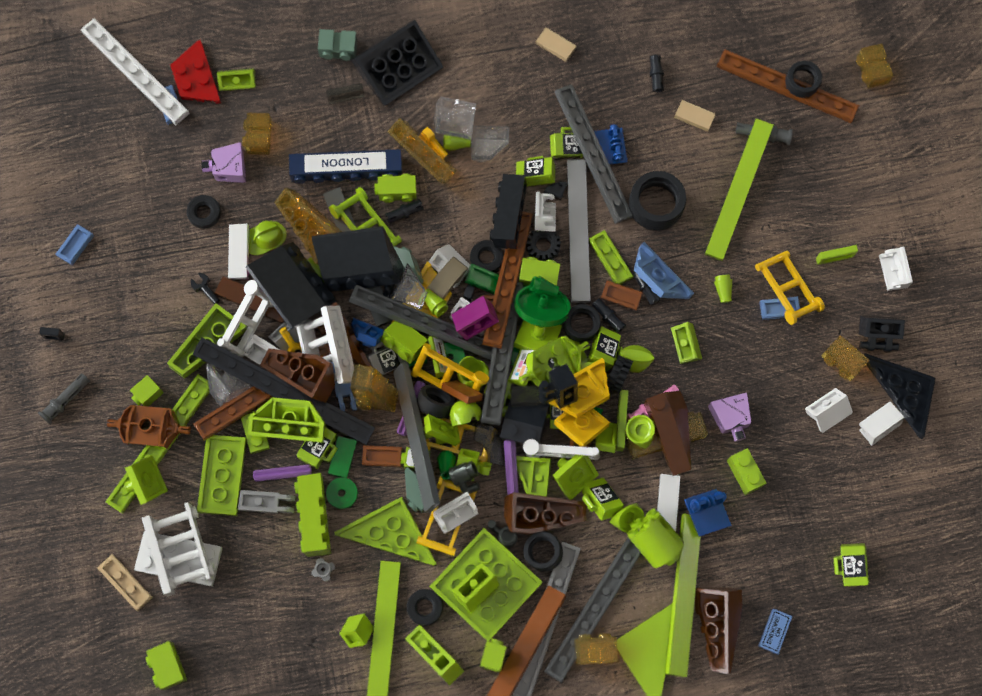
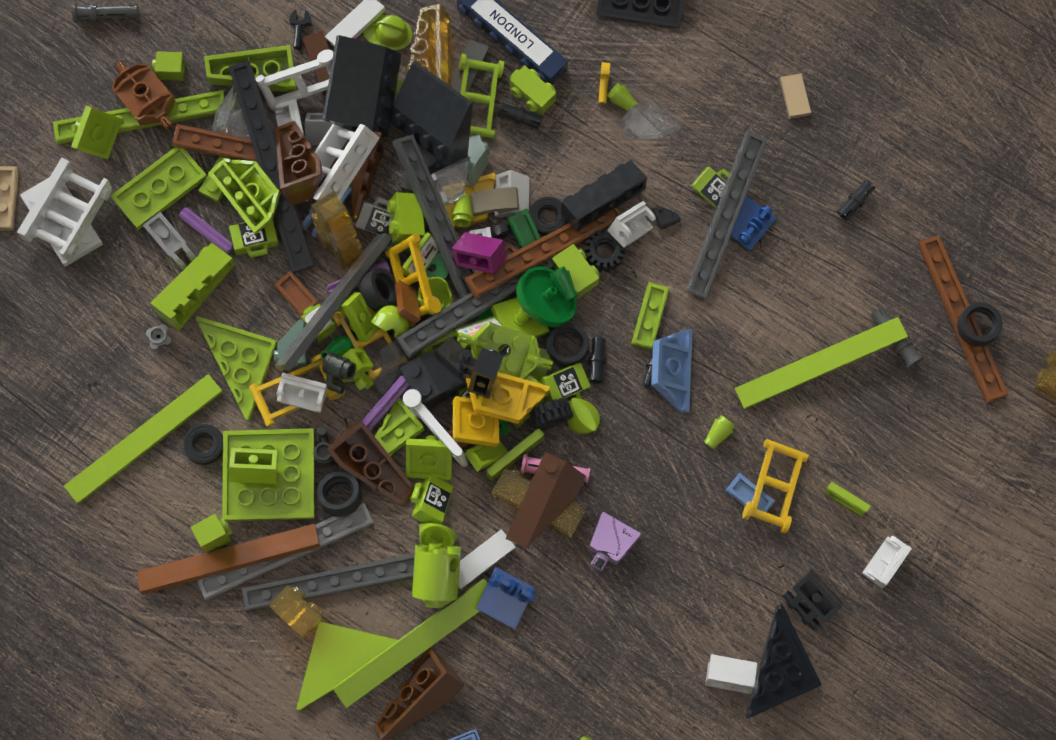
camera: 45 degrees right, 0 degrees up
(289, 340) = (318, 128): yellow bar -> none
(335, 487) = (231, 283): green piece -> none
(343, 457) = (265, 265): green tile -> none
(357, 630) = (133, 409): lime panel -> none
(366, 333) = (384, 183): blue wing -> none
(422, 151) = (584, 79): clear yellow brick -> none
(434, 655) = (171, 488): lime slope -> none
(454, 117) = (639, 76): clear slope -> none
(537, 170) = (665, 185): lime piece -> none
(578, 231) = (646, 268): light grey tile -> none
(621, 295) = (626, 354): dark orange tile -> none
(640, 430) = (516, 474): lime piece -> none
(663, 180) = (745, 280): black tyre -> none
(686, 343) = (639, 446): lime slope -> none
(694, 115) = (851, 266): tan tile -> none
(746, 471) = (572, 597): lime brick -> none
(830, 409) = (699, 620): white panel -> none
(845, 358) = (759, 590): clear yellow brick -> none

